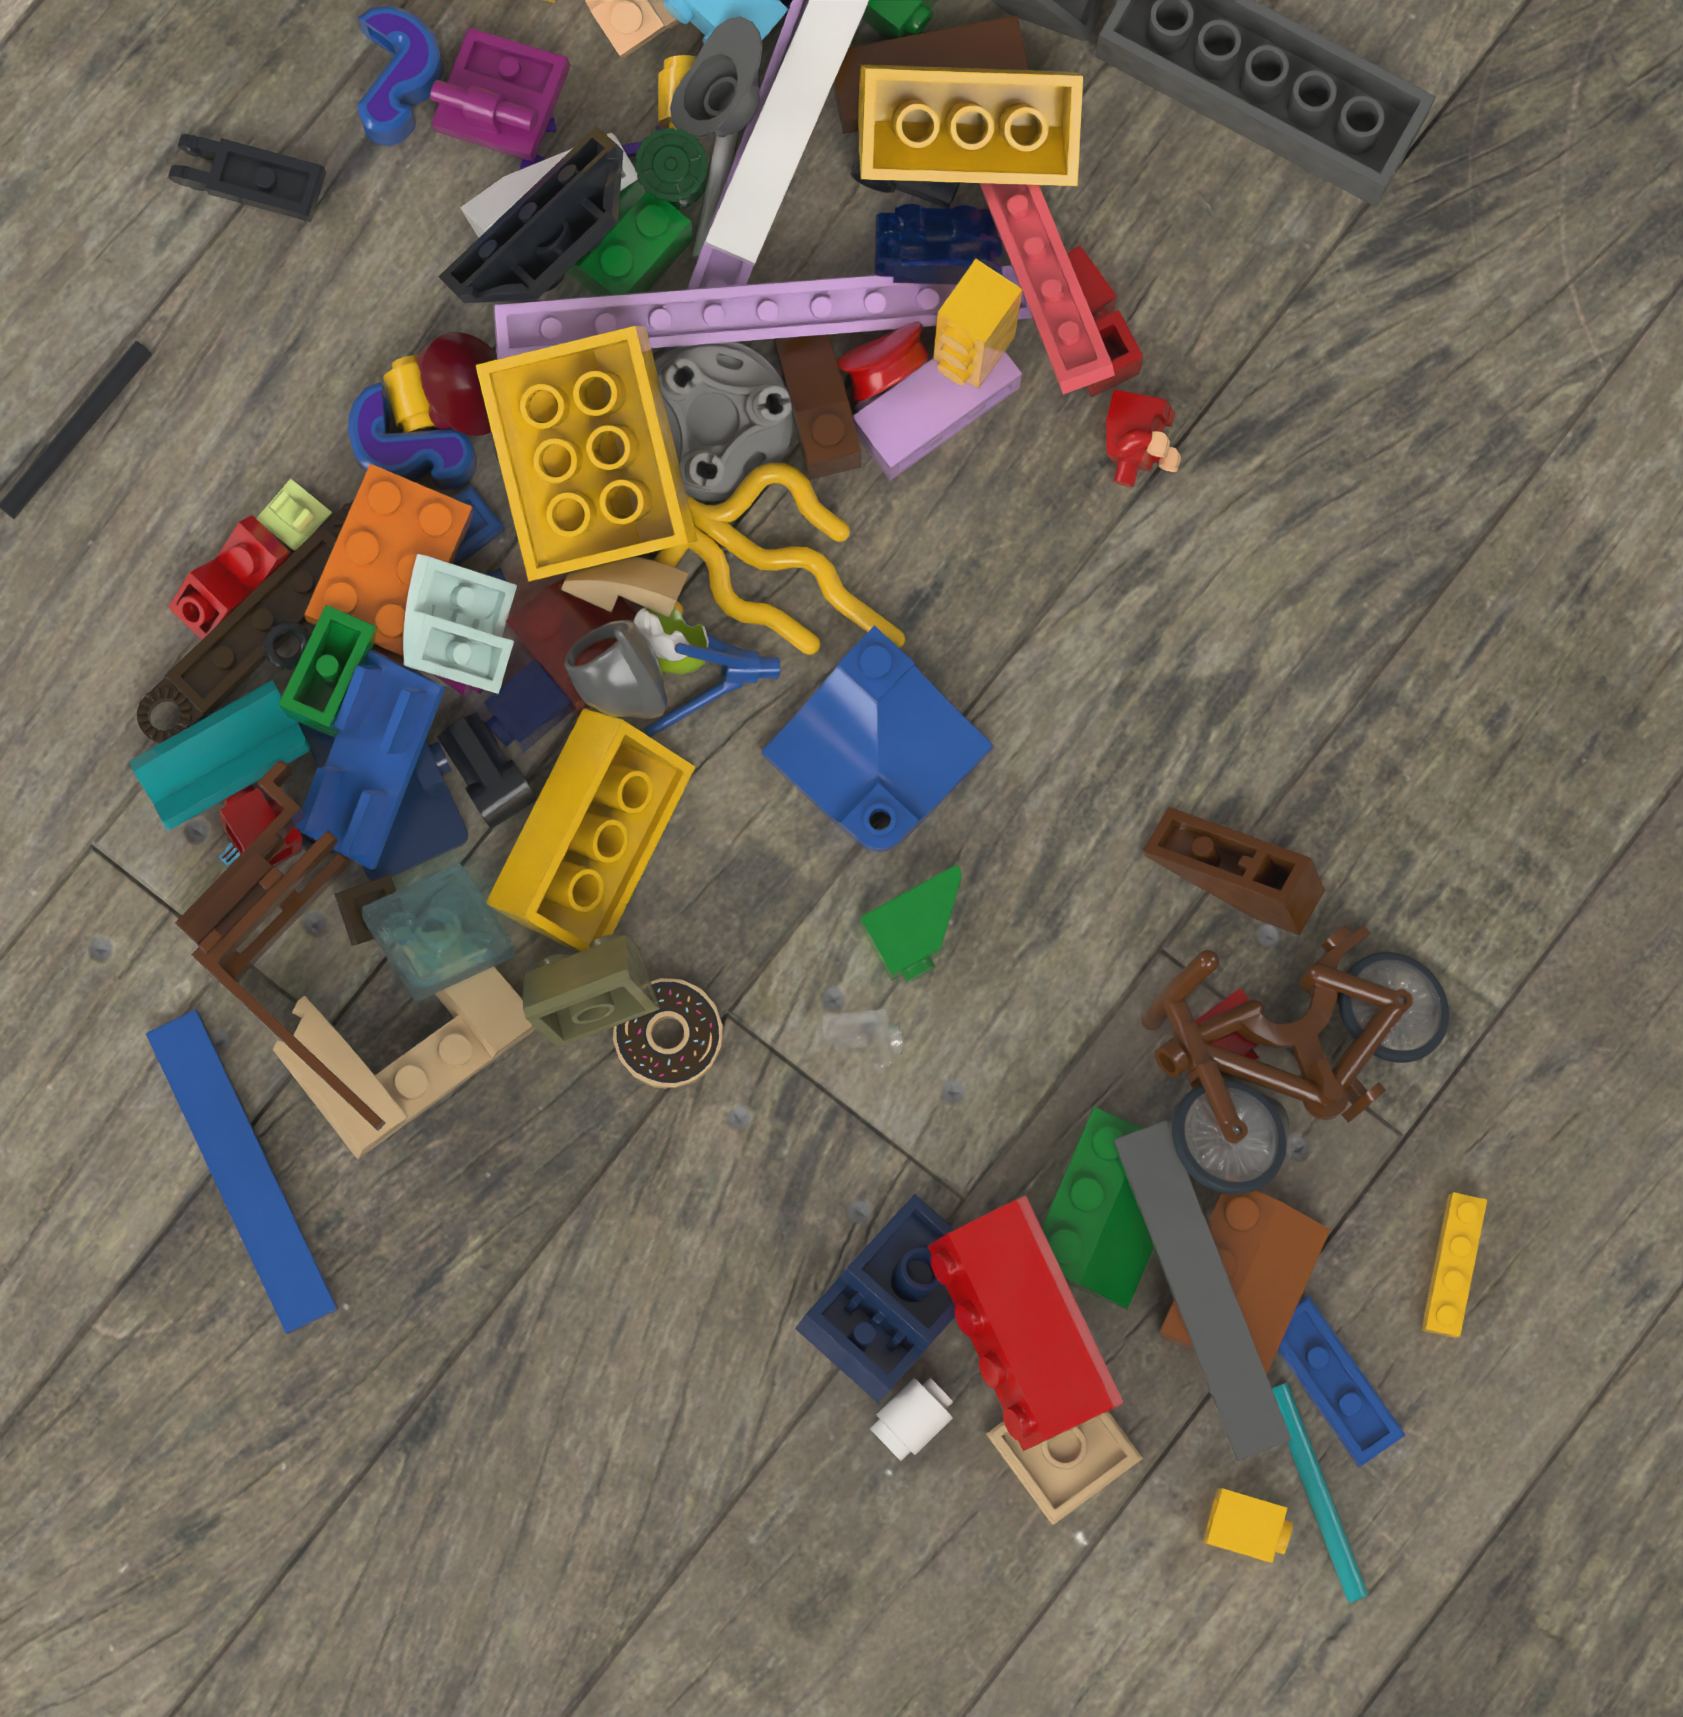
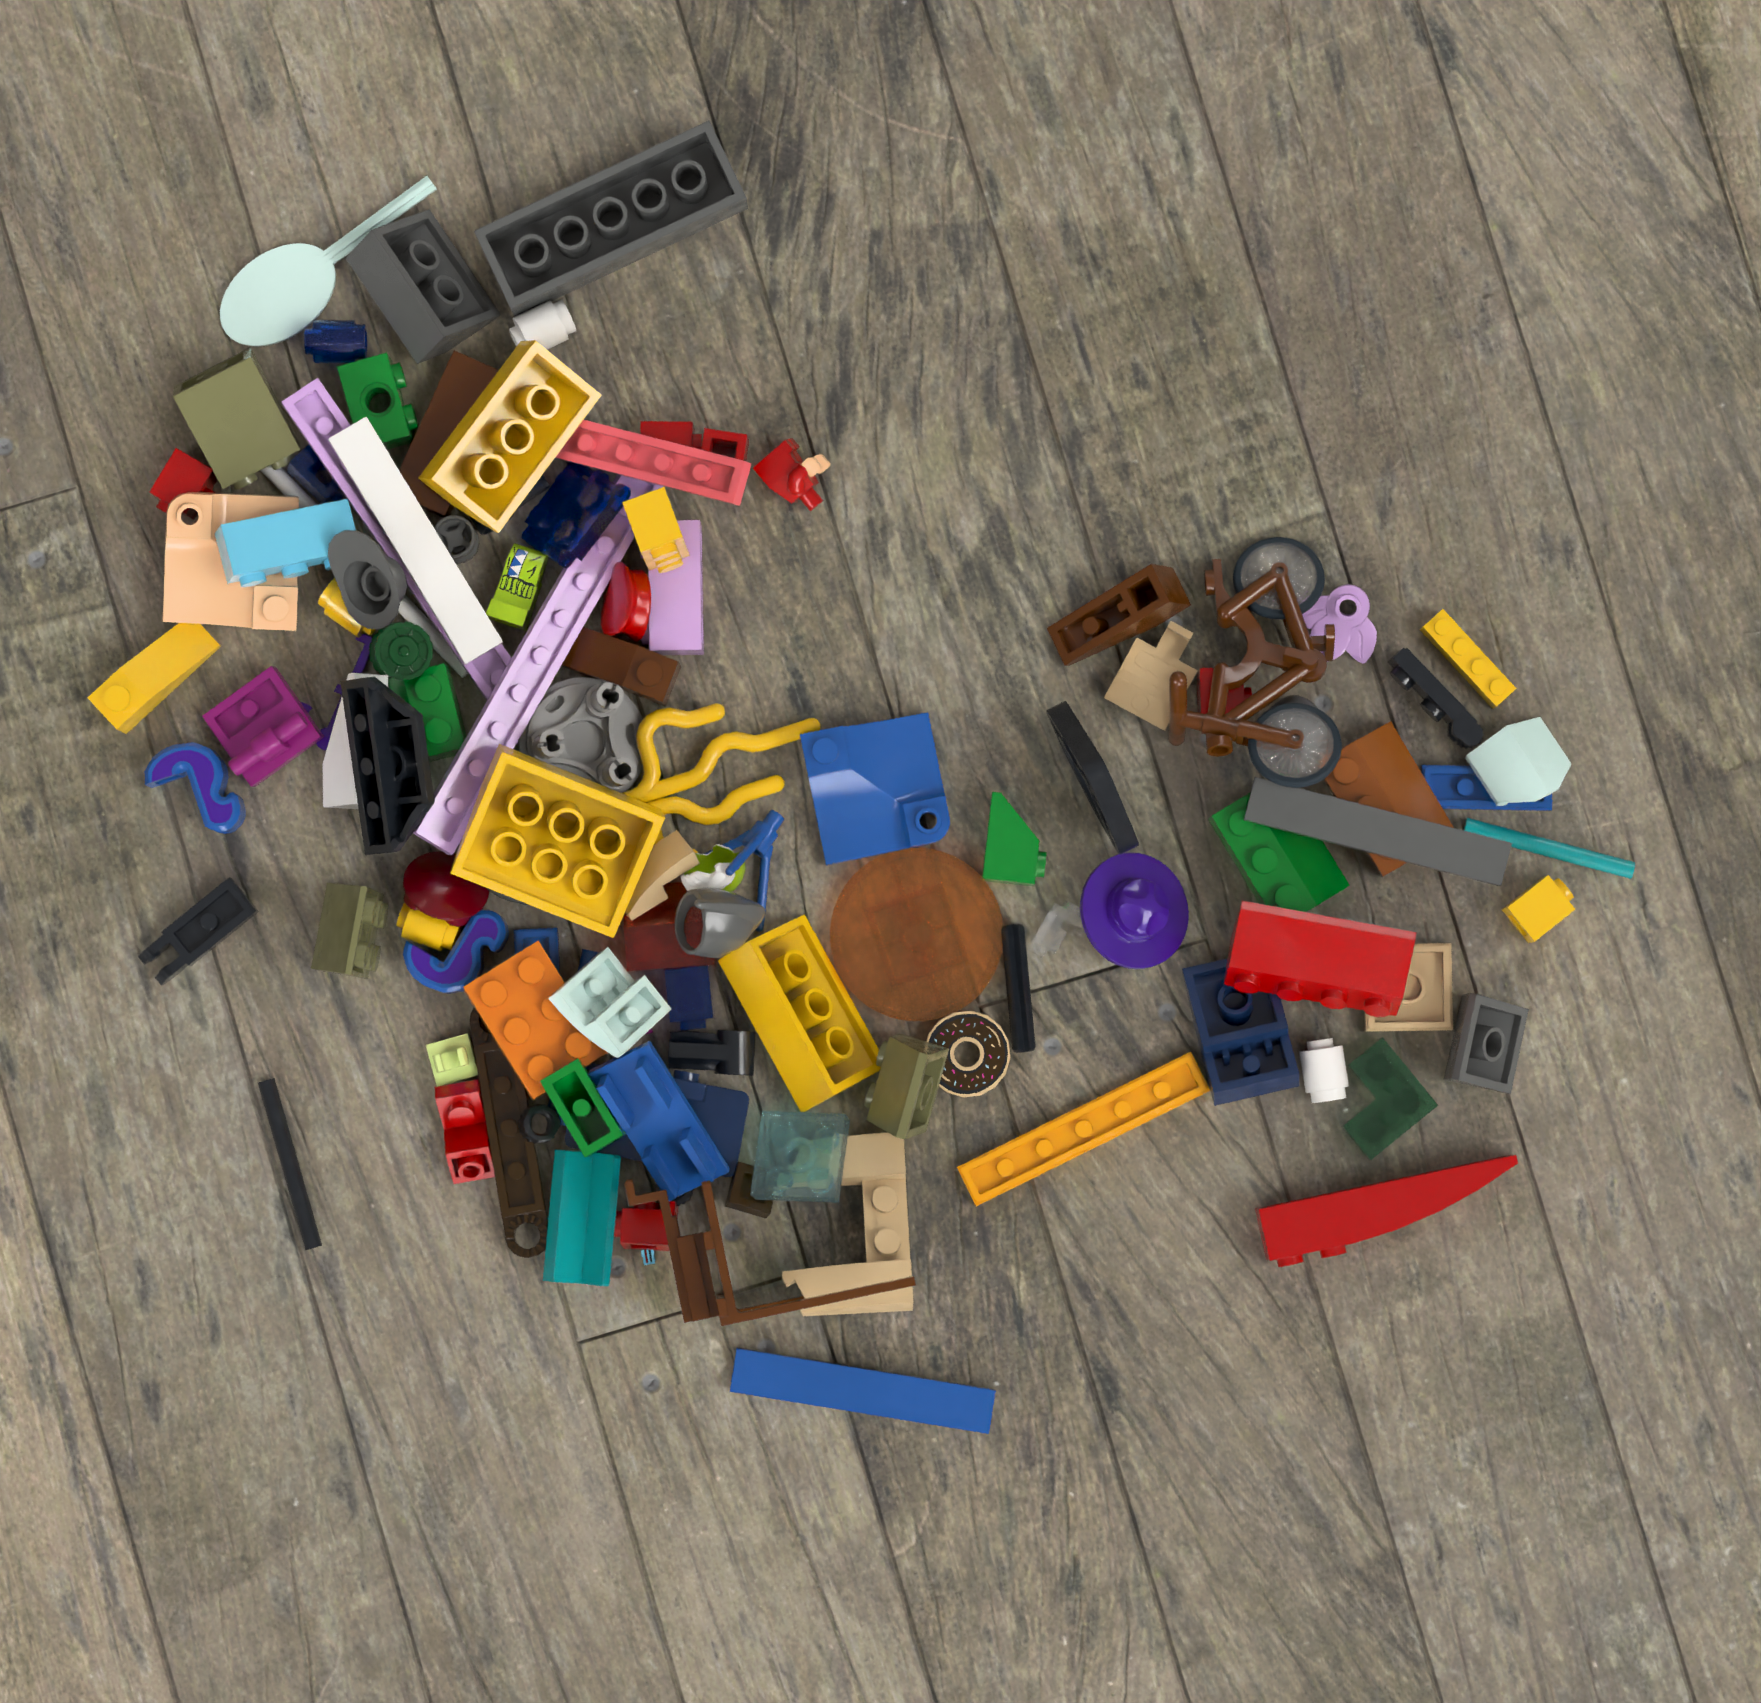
camera: 50 degrees left, 5 degrees up
(353, 321) = (349, 930): none -> olive slope
(675, 1209) = (1083, 1128): none -> light orange tile
(755, 895) = (916, 934): none -> clear orange plate
(773, 1038) = (1018, 988): none -> black axle
(794, 1566) = (1367, 1211): none -> red slope
(823, 246) = (518, 587): none -> lime leg
(827, 140) = (452, 532): none -> dark grey wheel
(938, 1100) = (1134, 910): none -> dark purple hat
(938, 1518) = (1397, 1103): none -> clear green plate
(1045, 956) = (1093, 777): none -> black beam
(1064, 1572) = (1486, 1043): none -> dark grey slope
(1108, 87) = (546, 324): none -> white brick
(1178, 935) = (1145, 674): none -> tan piece
(1385, 1396) = (1520, 763): none -> light aqua slope
(1387, 1263) = (1437, 699): none -> black hinge
(1389, 1118) = (1352, 631): none -> lavender plate

